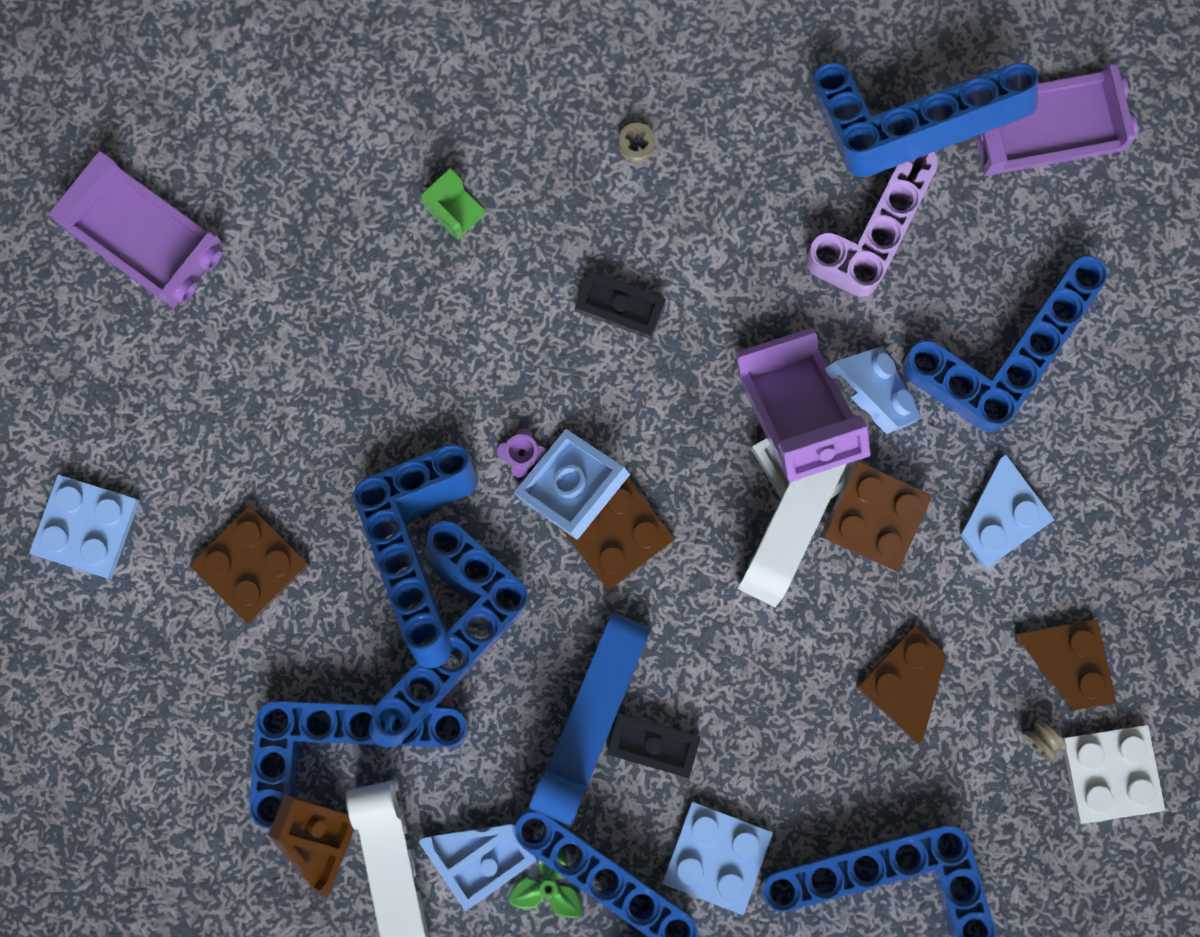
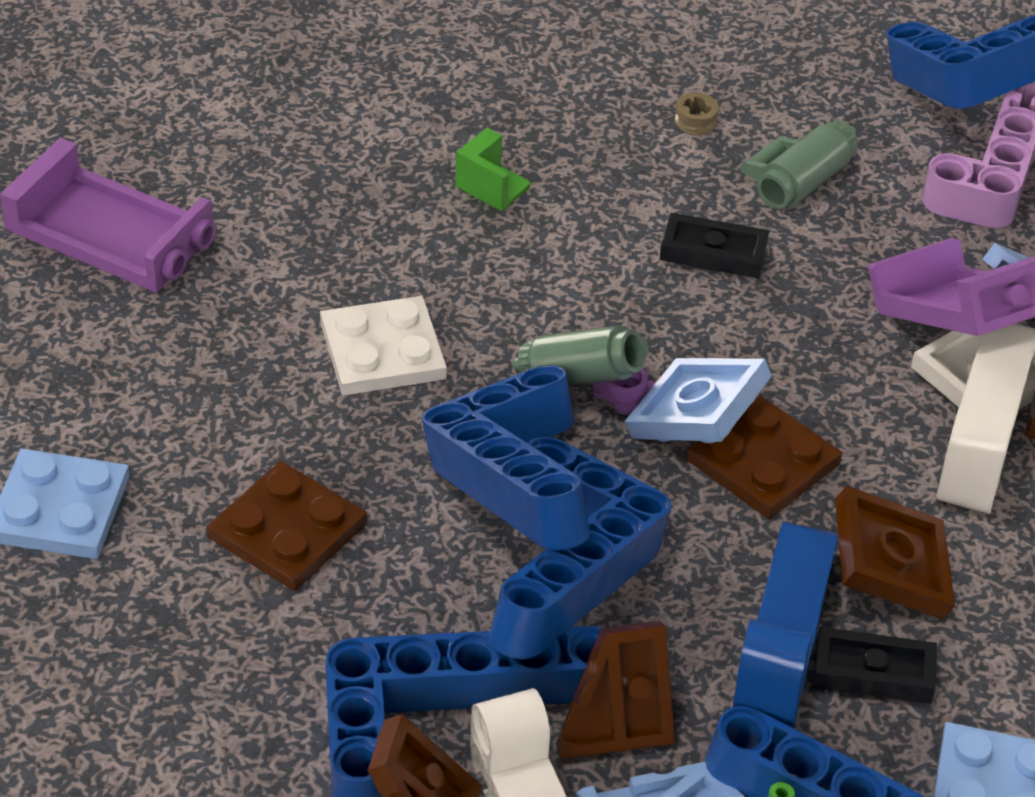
camera: 10 degrees left, 35 degrees down
(341, 387) = (382, 345): none -> white plate
(461, 767) = (621, 695): none -> reddish brown wing
(491, 436) = (587, 354): none -> sand green piece
(688, 650) = (894, 552): none -> reddish brown plate
(713, 219) = (794, 168): none -> sand green piece

